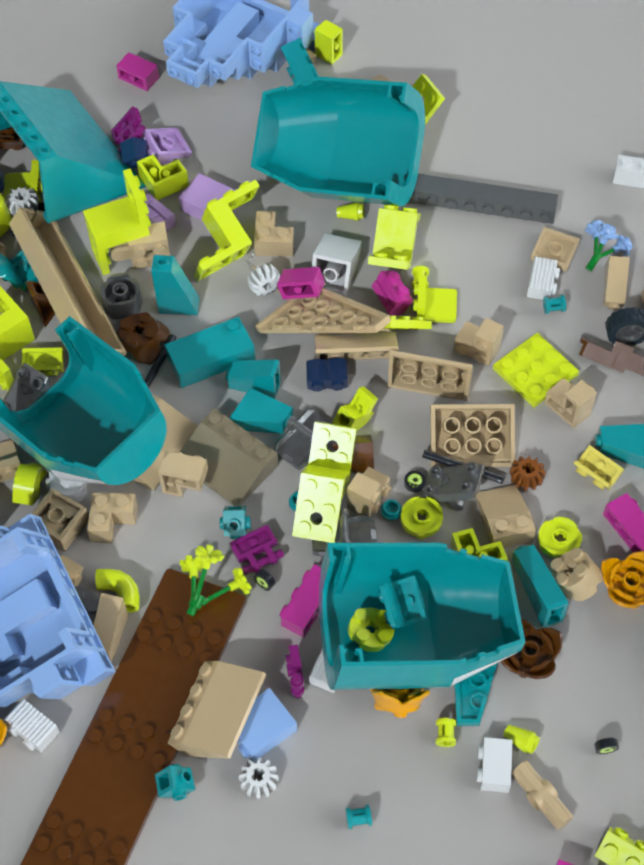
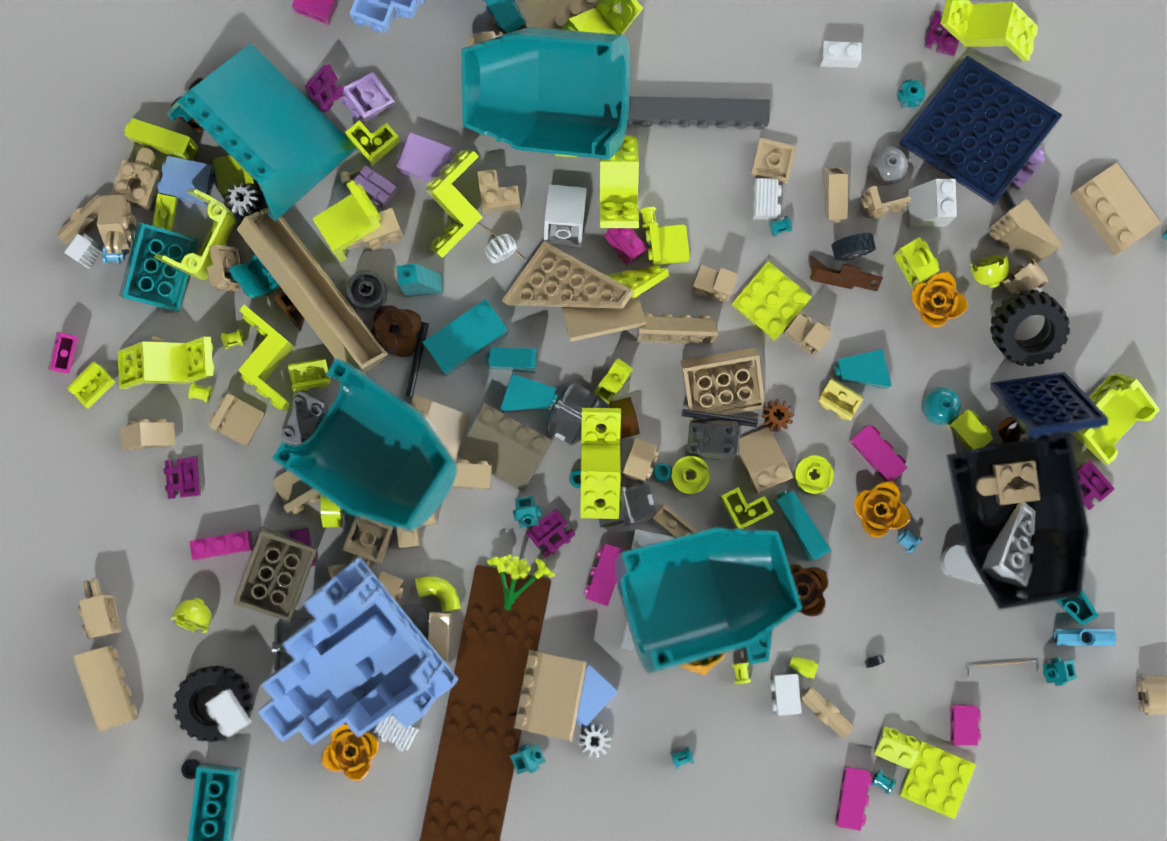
camera: 15 degrees left, 25 degrees up
(133, 151) = (338, 116): dark blue brick -> none
(264, 579) = (563, 561): black tile -> none
(294, 669) = (605, 641): magenta plate -> none
(301, 283) = (537, 248): dark pink brick -> none
(327, 374) = (575, 348): dark blue brick -> none
(370, 641) = (661, 612): neon yellow plate -> none
(402, 602) = (689, 575): teal bracket -> none
(414, 481) = (678, 439): tile -> none
(576, 574) = (833, 514): tan brick -> none
(607, 232) = (822, 146): light blue plant -> none

